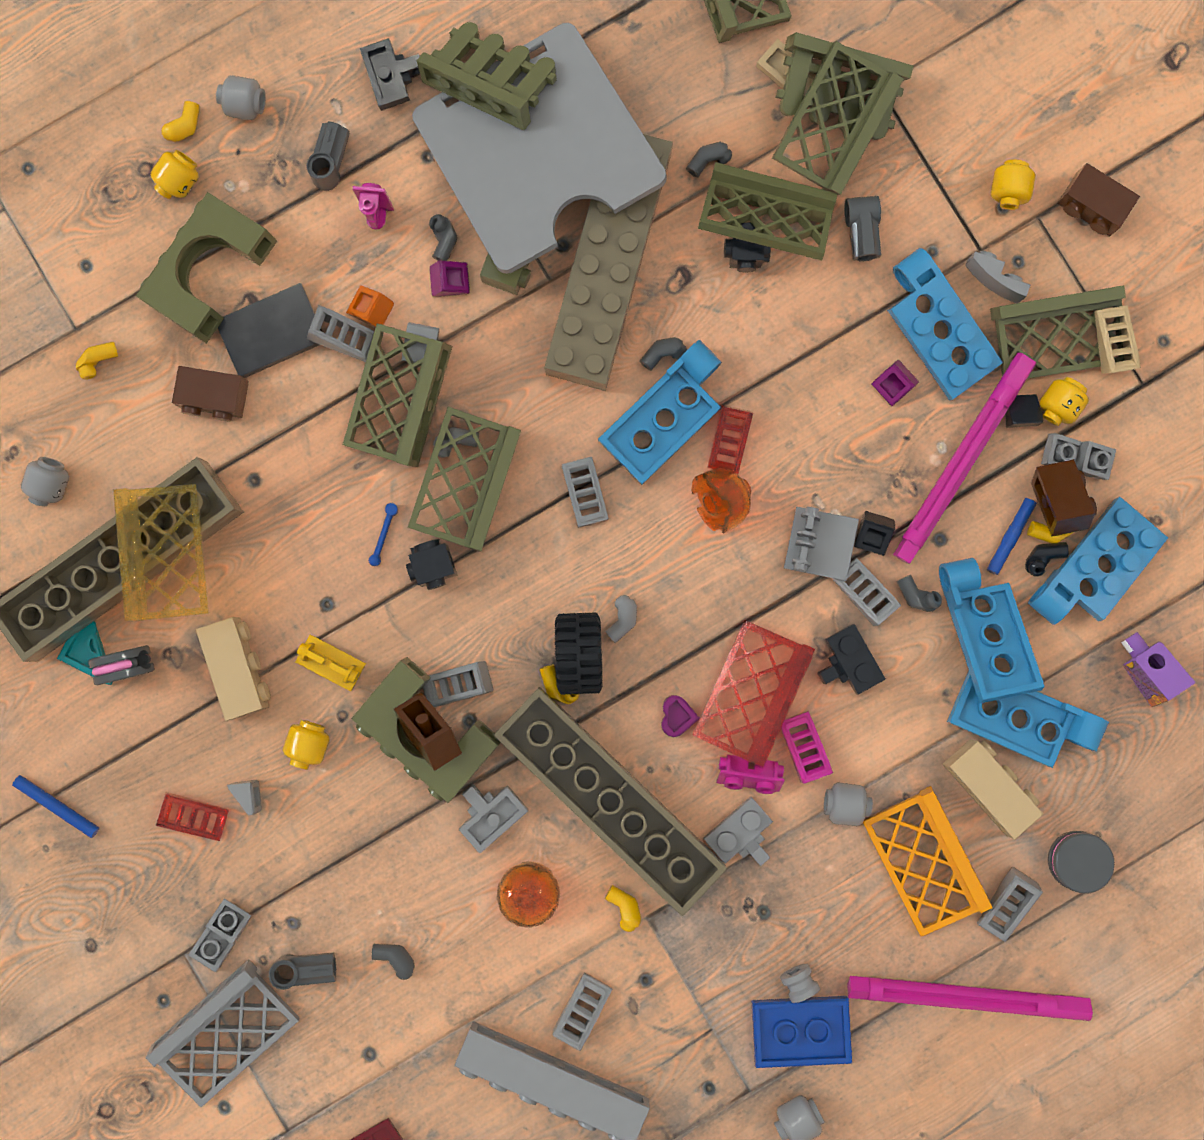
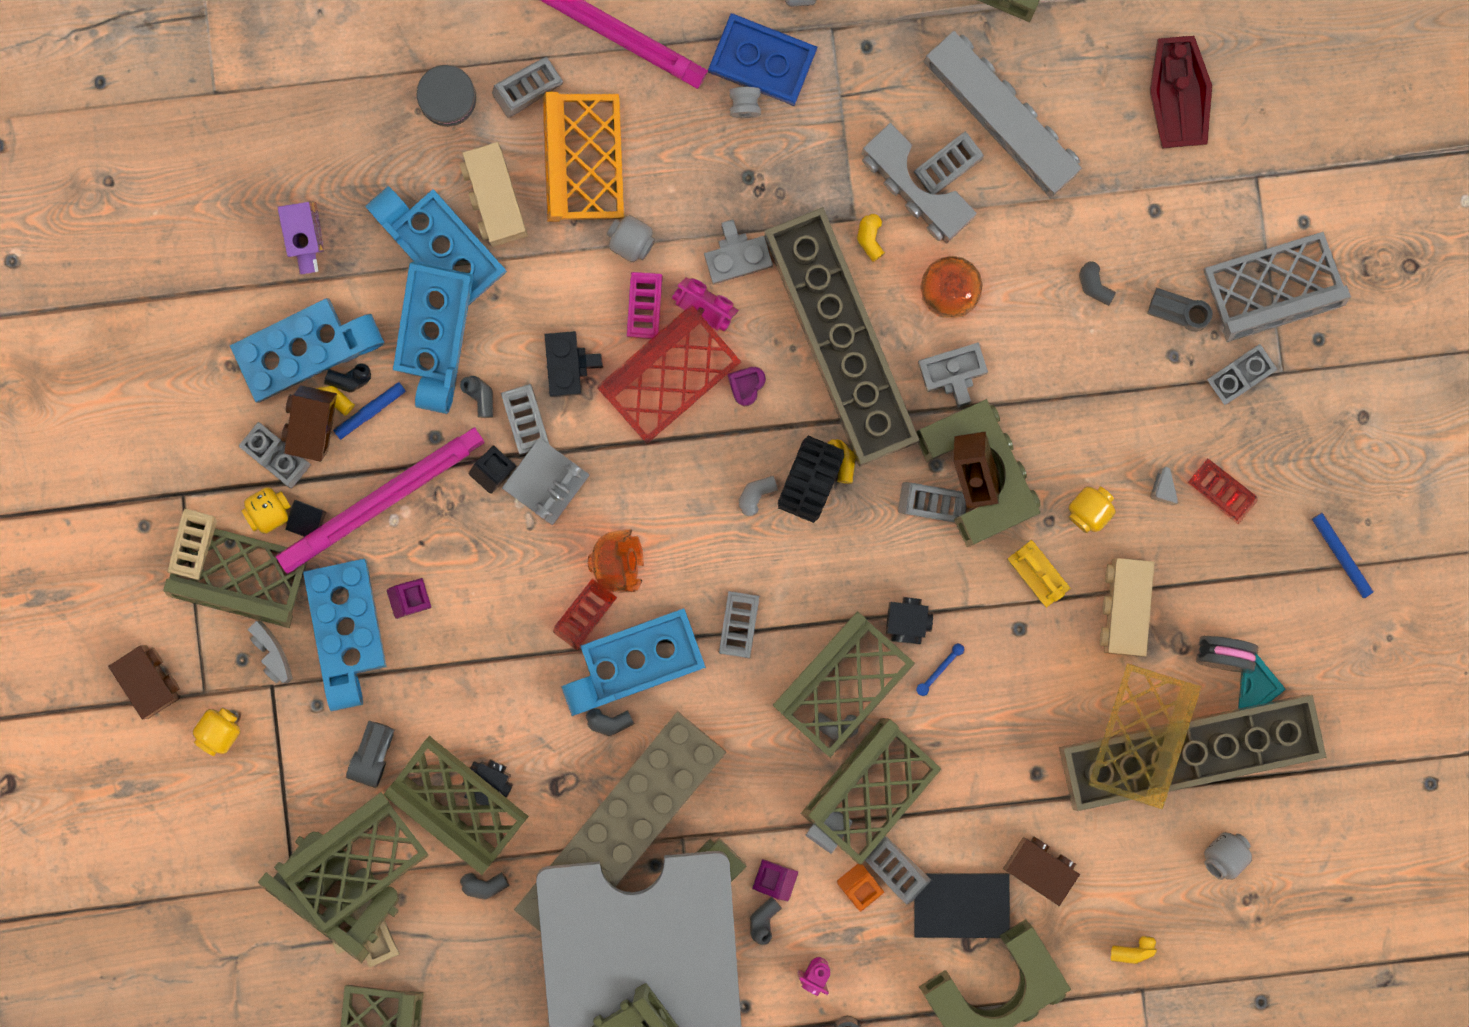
camera: 160 degrees left, 0 degrees up
(565, 962) = (944, 213): none -> light grey arch

